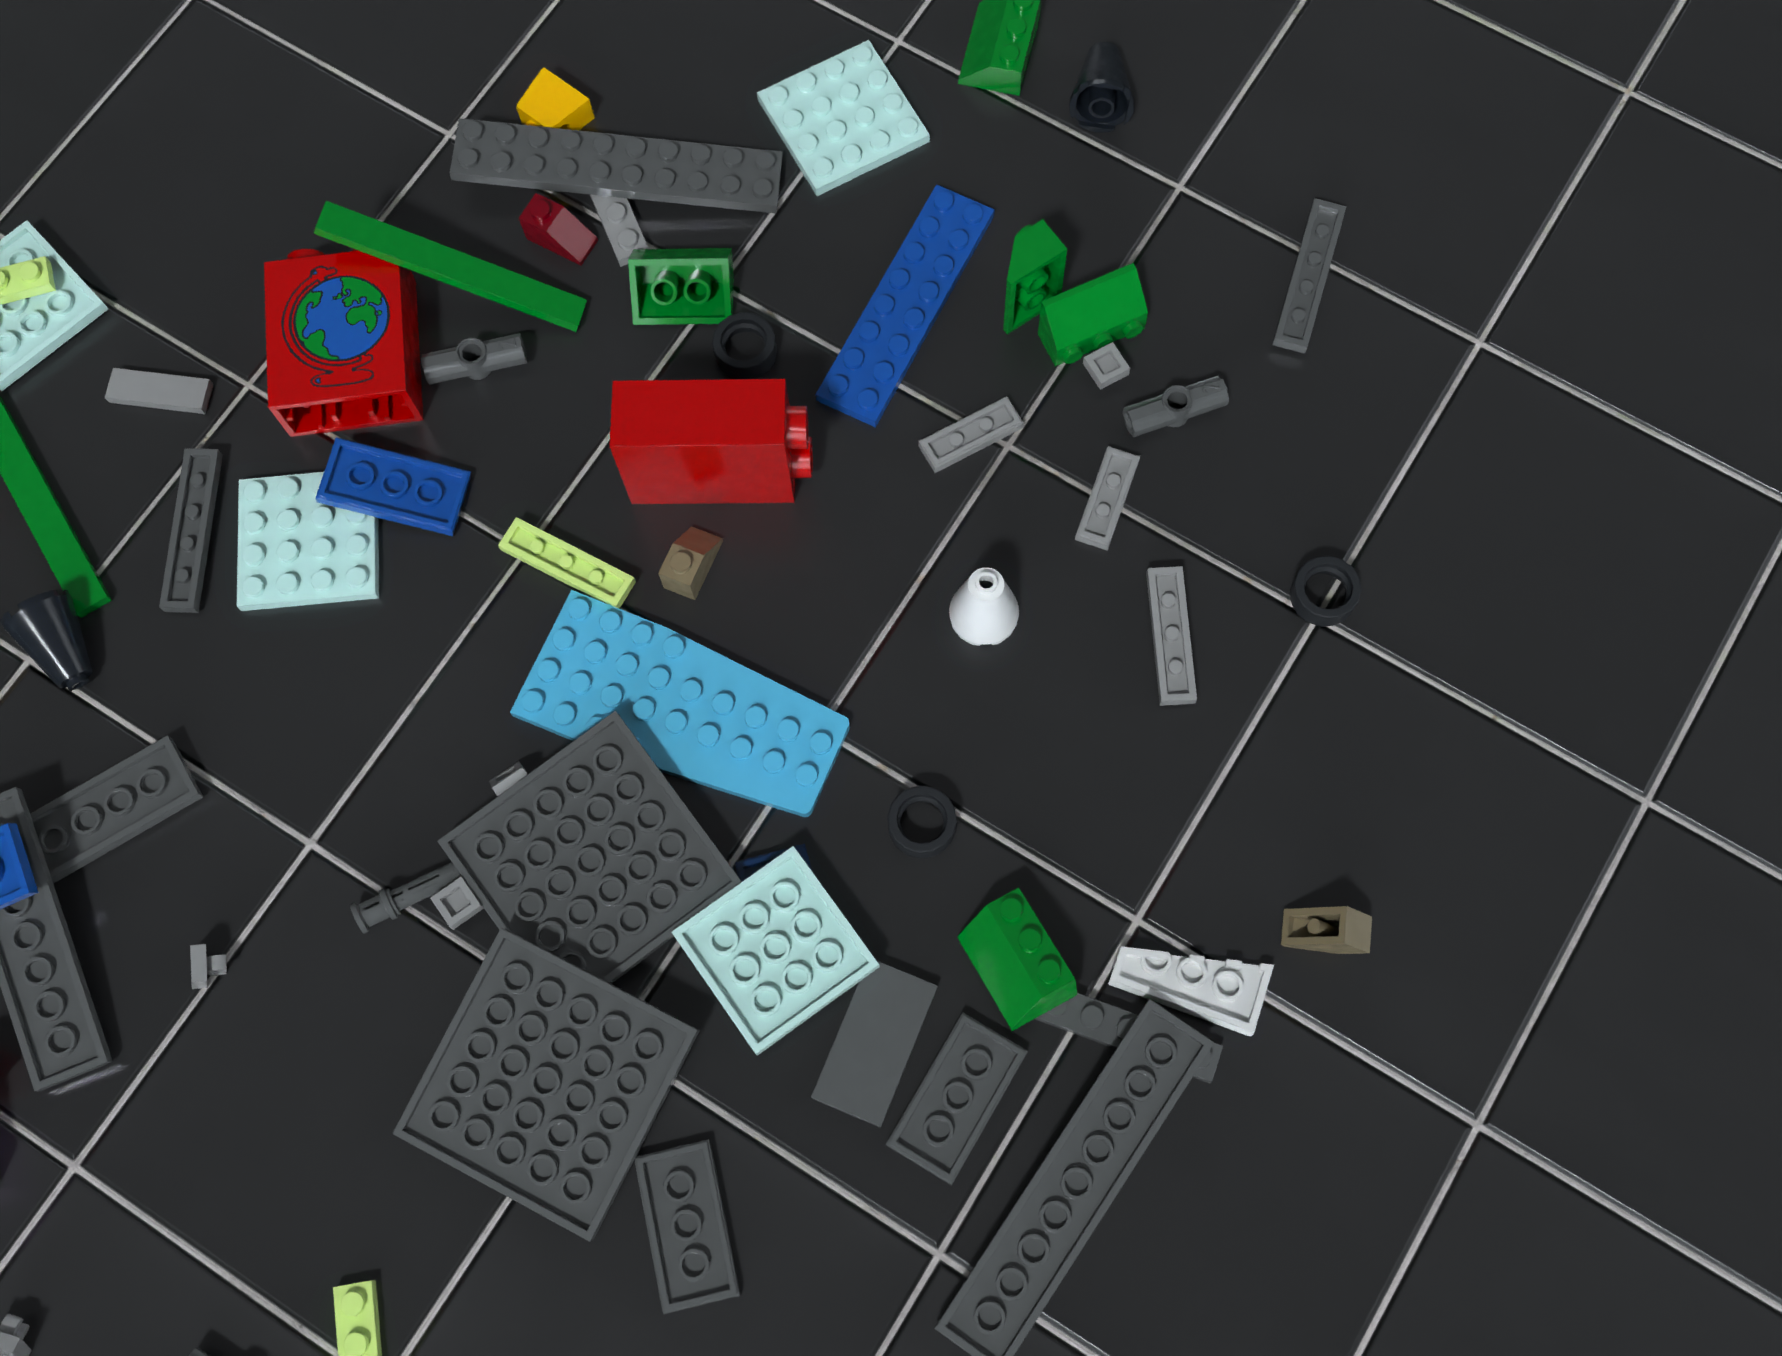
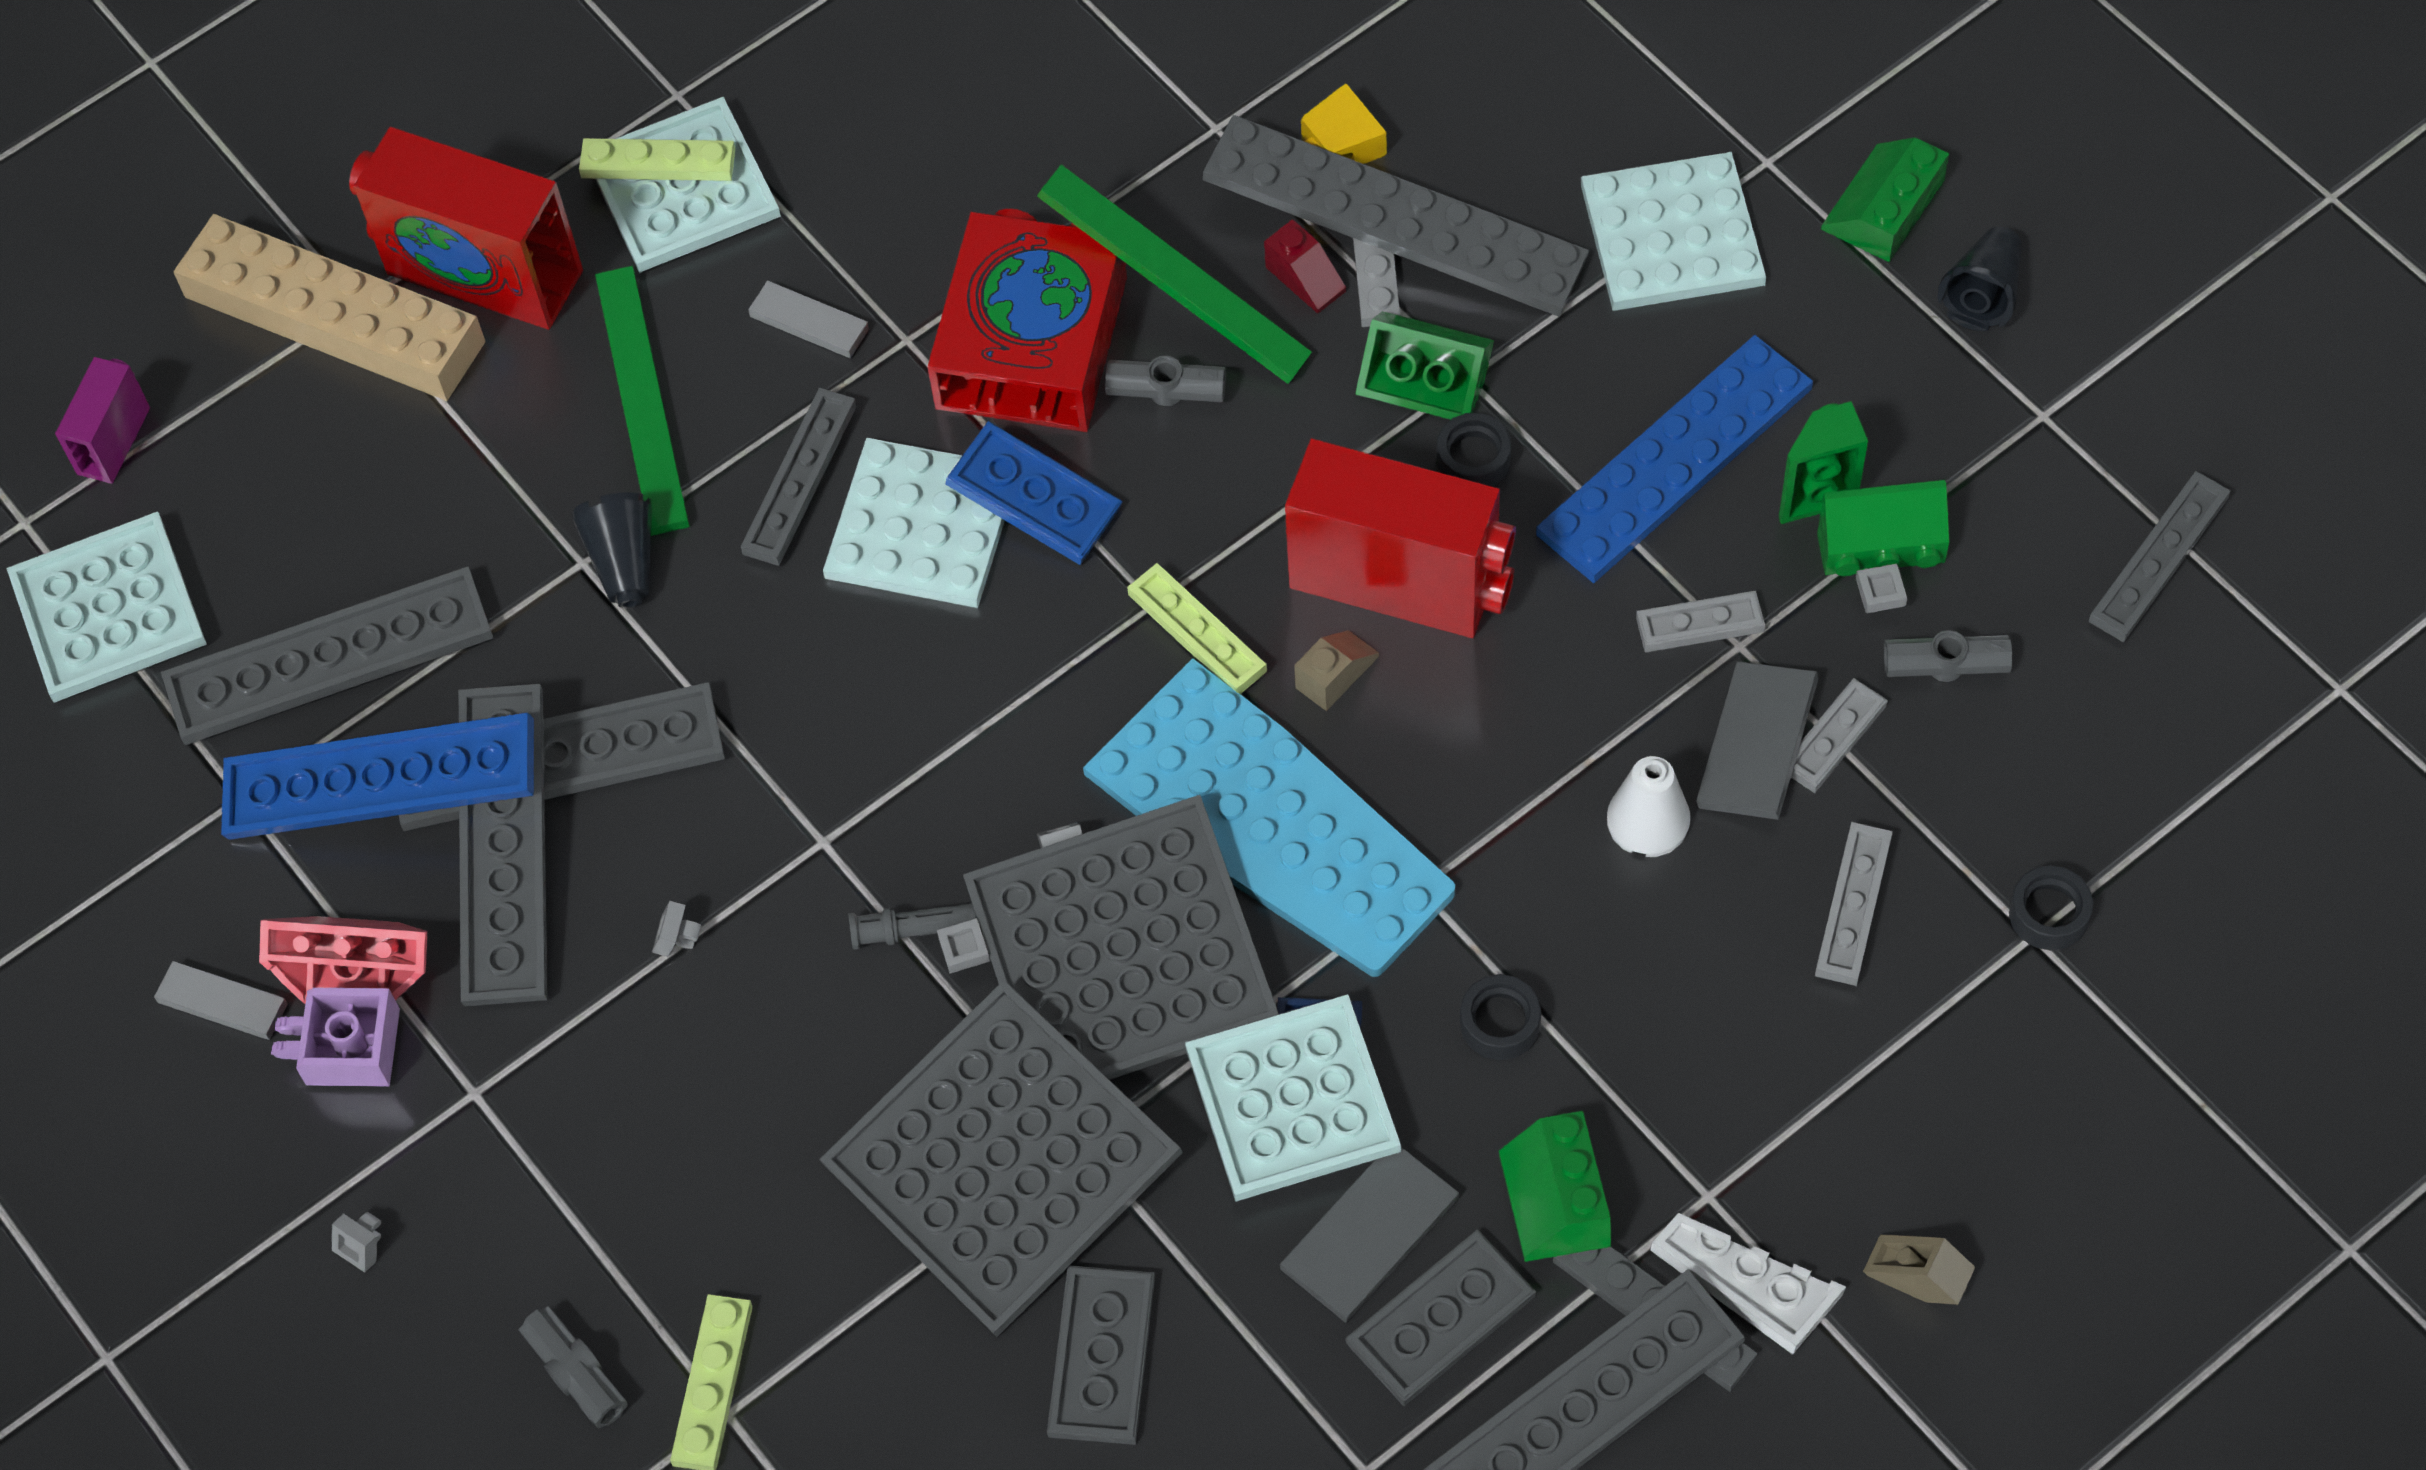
camera: 20 degrees right, 10 degrees down
(1050, 521) = (1757, 740): none -> dark grey tile

